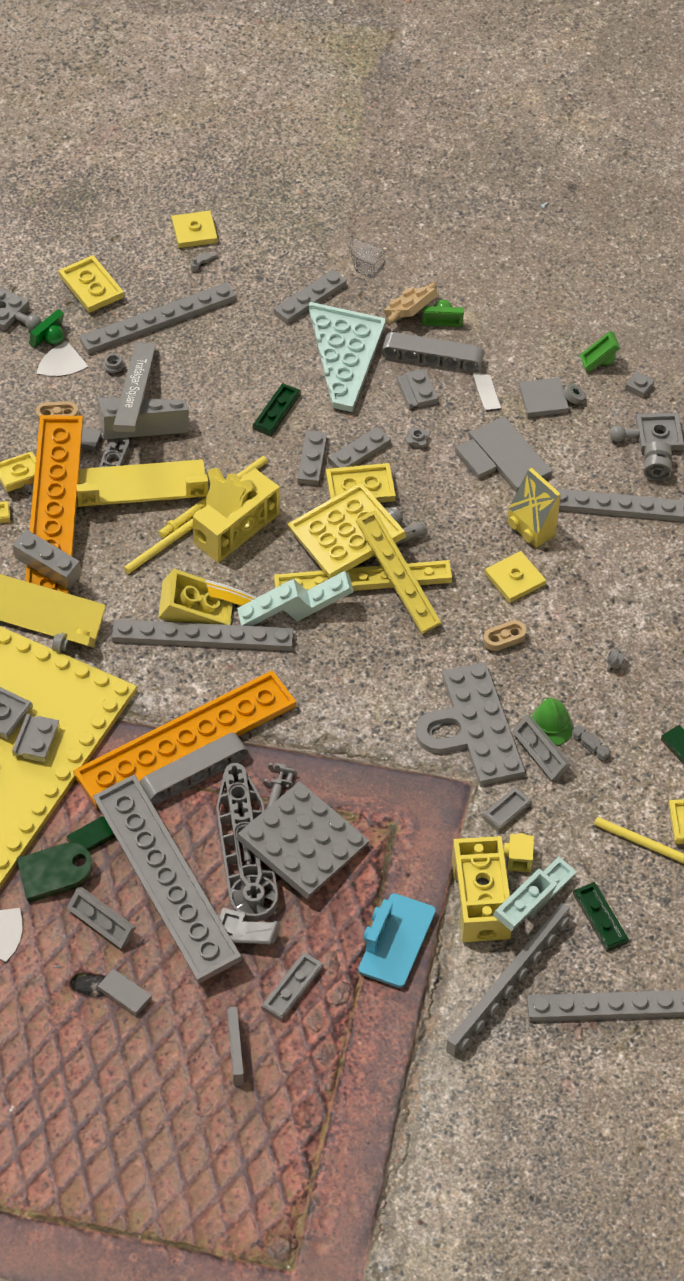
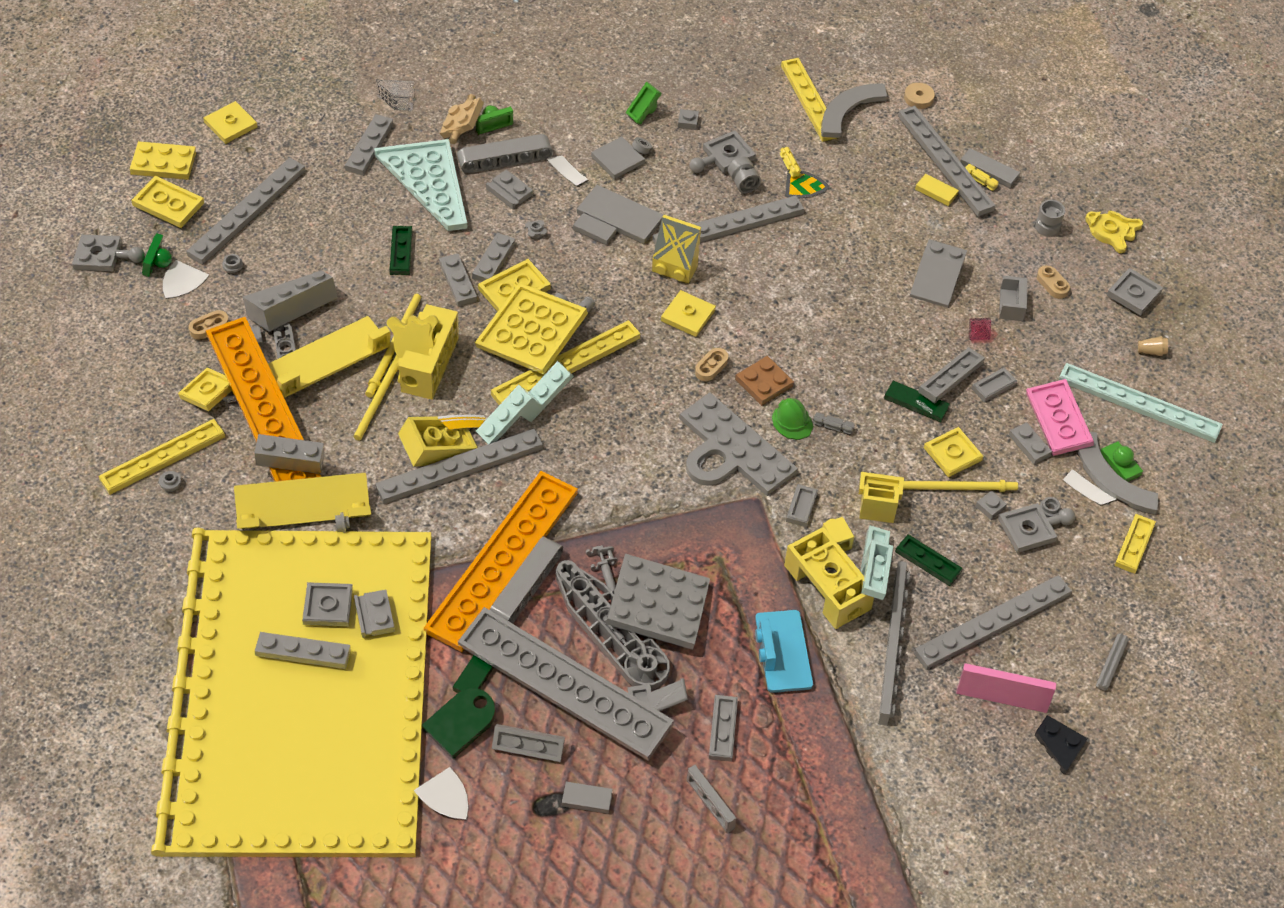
camera: 30 degrees left, 0 degrees up
(111, 243) = (163, 160): none -> light yellow plate
(134, 387) = (273, 275): light grey tile -> none
(203, 258) = (253, 145): light grey piece -> none
(398, 572) = (598, 345): light yellow tile -> none
(541, 748) = (799, 443): light grey plate -> none
(549, 672) = (764, 380): none -> medium nougat plate
(586, 832) = (879, 496): none -> light yellow plate
(589, 1073) = (1006, 688): none -> bright pink tile
(615, 658) = (811, 347): light grey plate -> none
(617, 1152) = (1060, 742): none -> black wing

